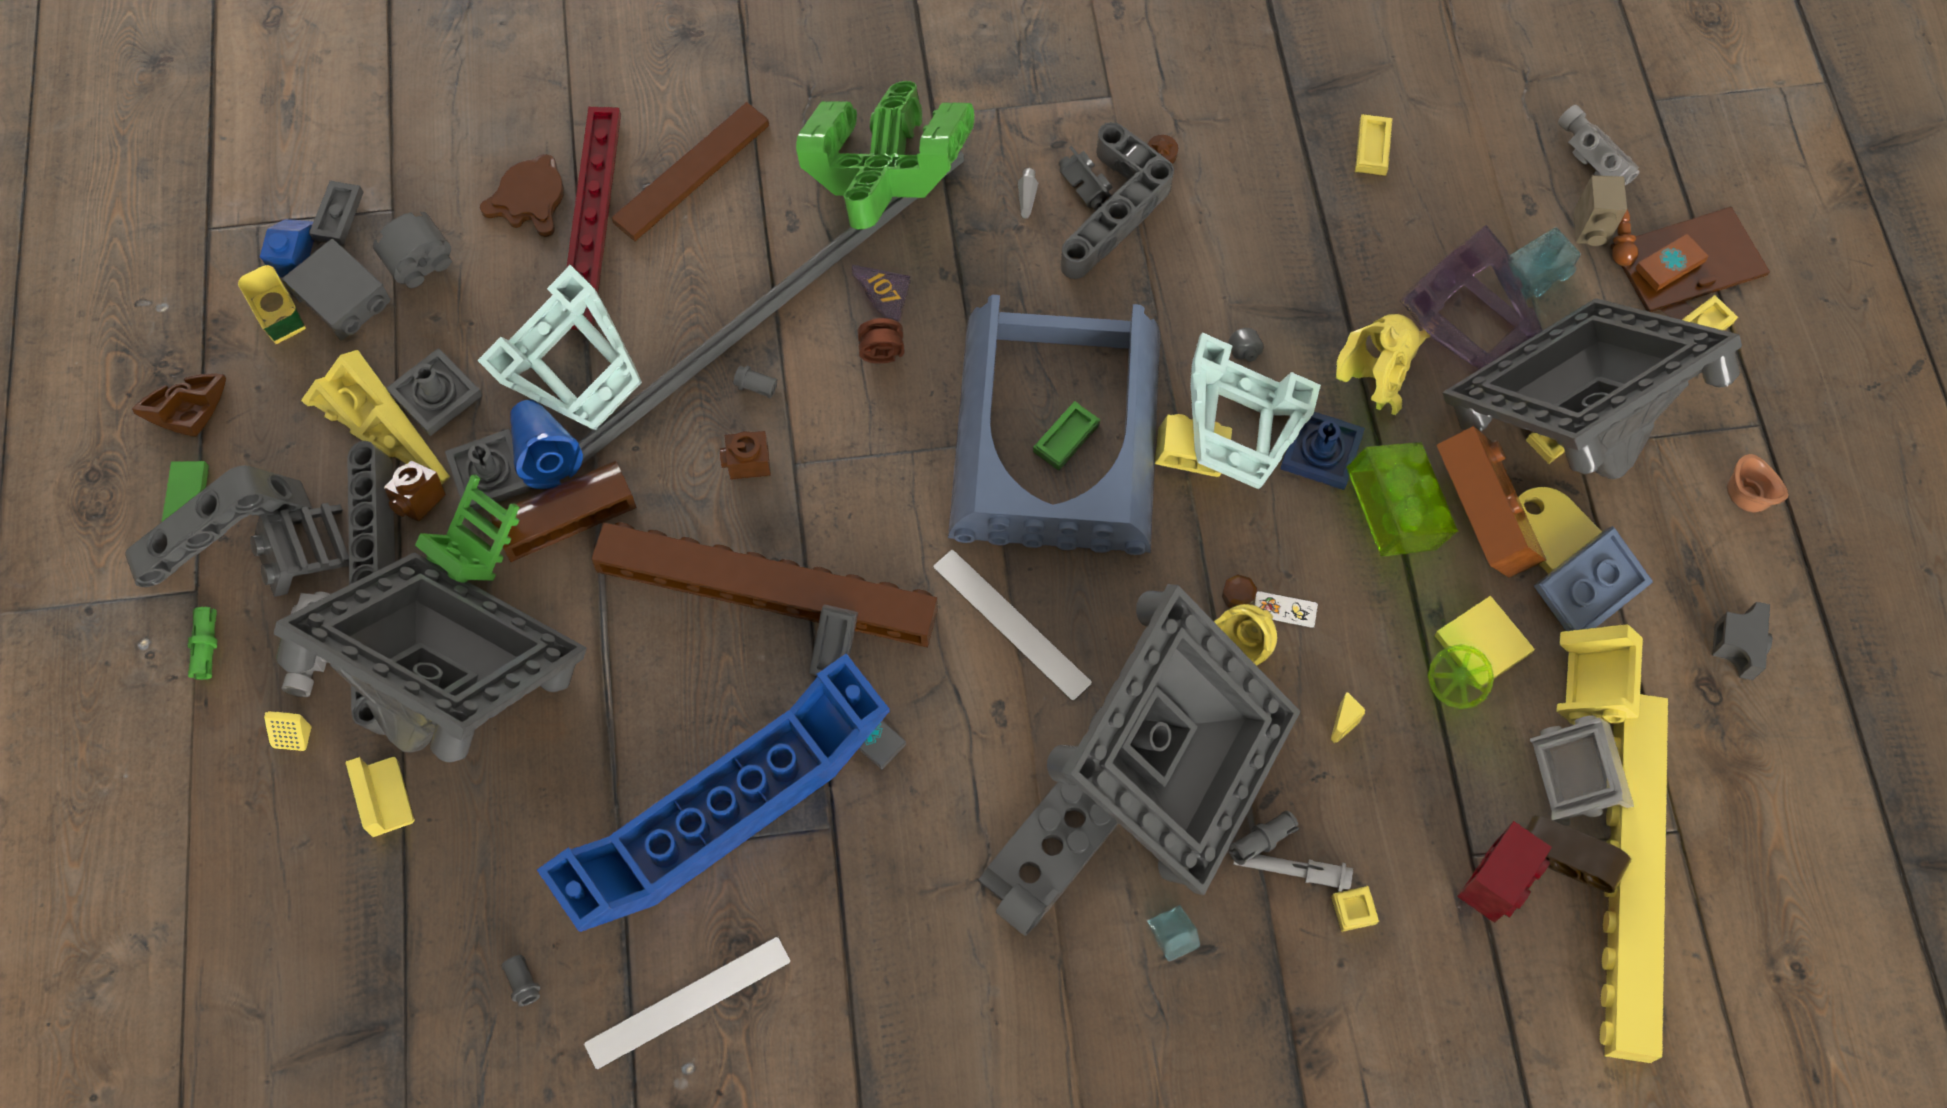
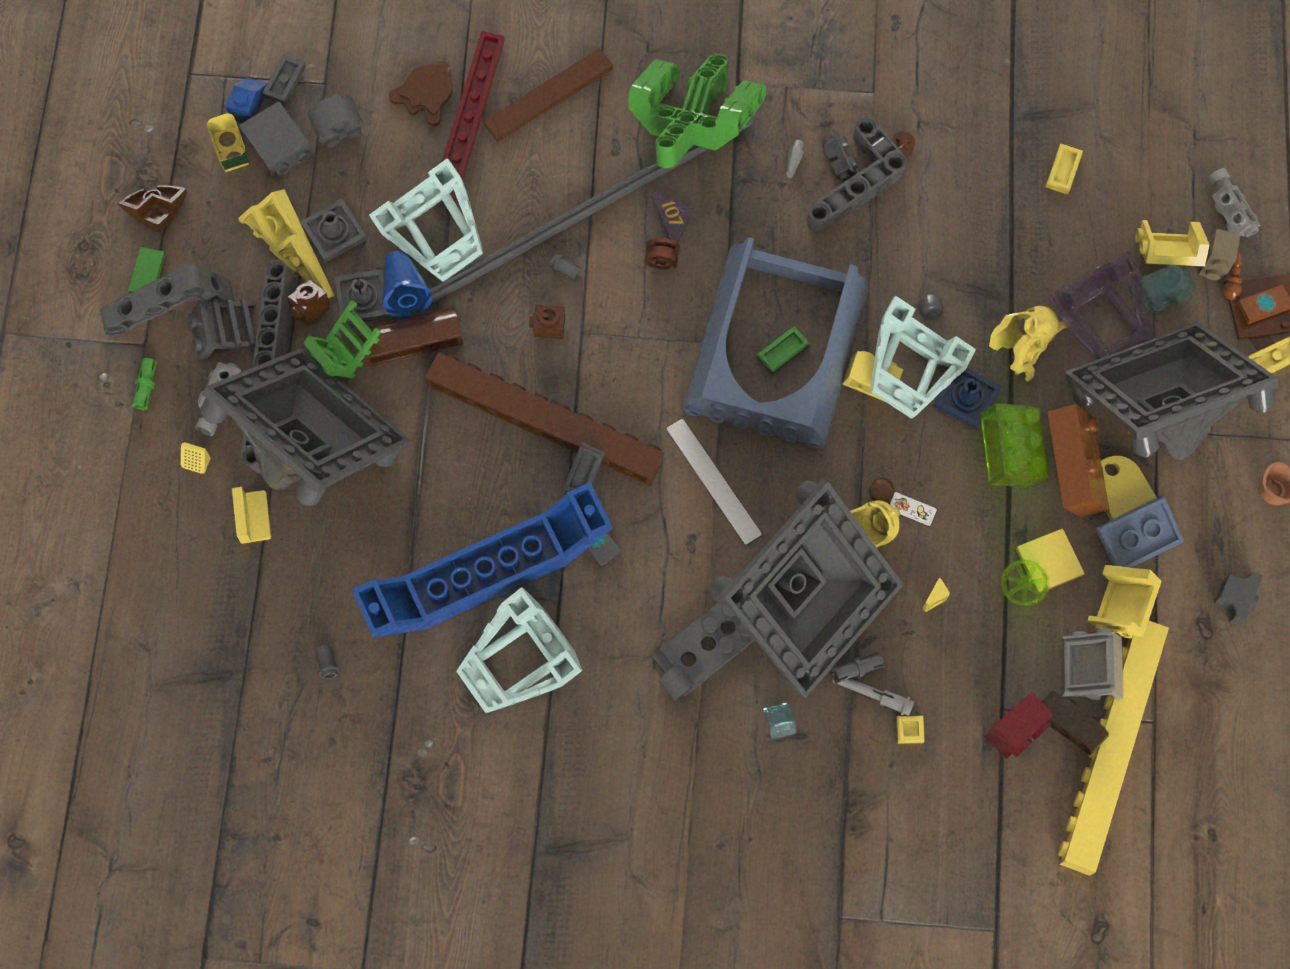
camera: 10 degrees right, 5 degrees up
(686, 1003) = (425, 703): white sticker -> none
(809, 864) = (547, 636): none -> light aqua windscreen
(1560, 211) = (1173, 248): none -> light yellow panel

